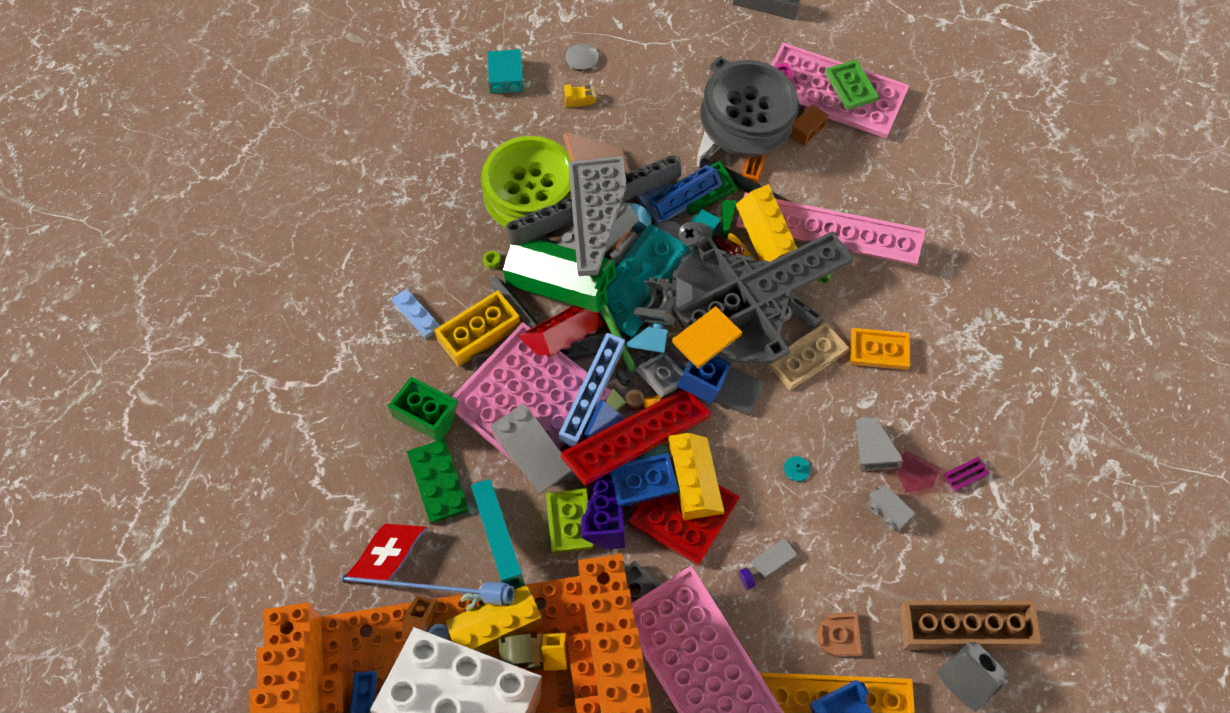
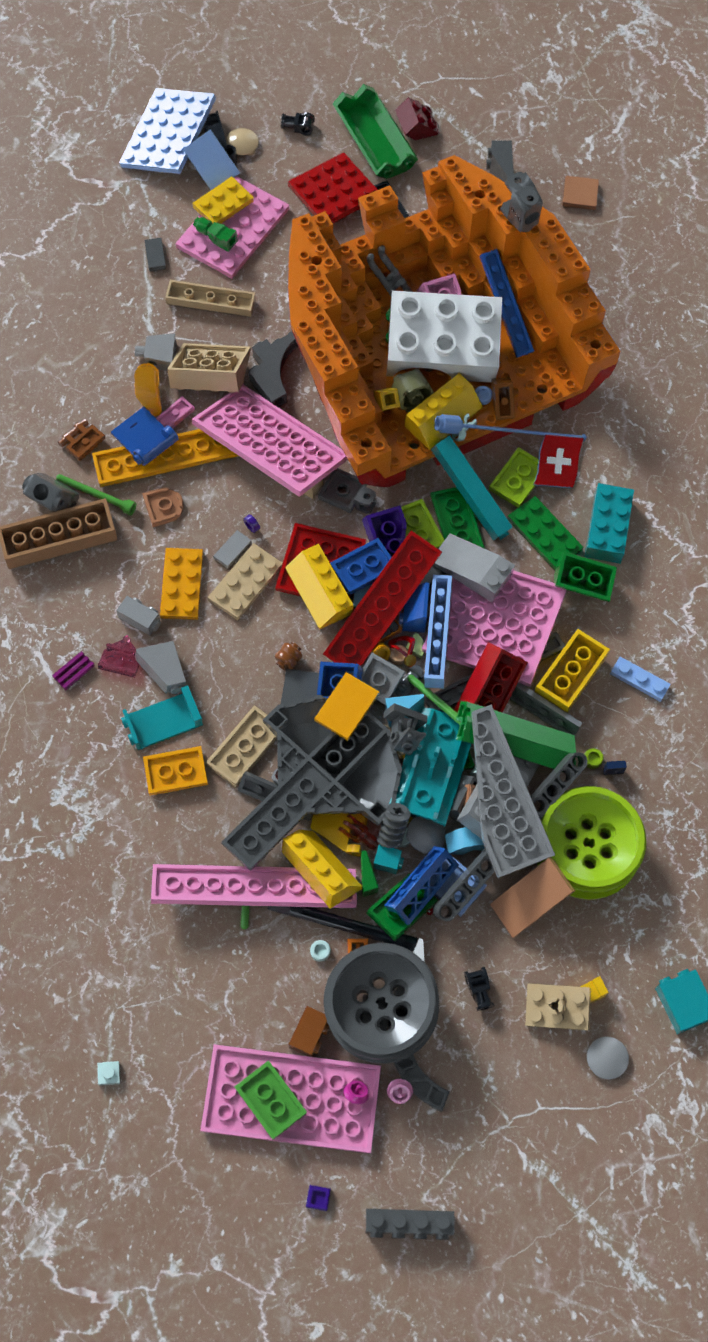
camera: 160 degrees right, 5 degrees up
(368, 465) = (609, 523): none -> teal brick
(439, 548) = (516, 478): none -> lime plate
(478, 243) = (614, 767): none -> dark blue tile
(525, 519) = (455, 516): none -> green tile
(606, 89) = (558, 1006): none -> tan plate
(627, 388) = (409, 660): none -> red piece
(662, 119) = (479, 986): none -> black connector
(745, 422) = (288, 656): none -> dark orange piece
(768, 518) = (245, 581): none -> tan plate
(783, 179) = (320, 950): none -> light aqua tile
(796, 468) = (230, 633): teal piece -> none
(828, 32) = (318, 1198): none -> dark purple tile
(837, 536) = (181, 583): none -> light orange plate
(883, 644) = (127, 506): none -> bright green piece
(885, 400) = (162, 720): none -> teal panel
(975, 142) = (108, 1073): none -> light aqua plate

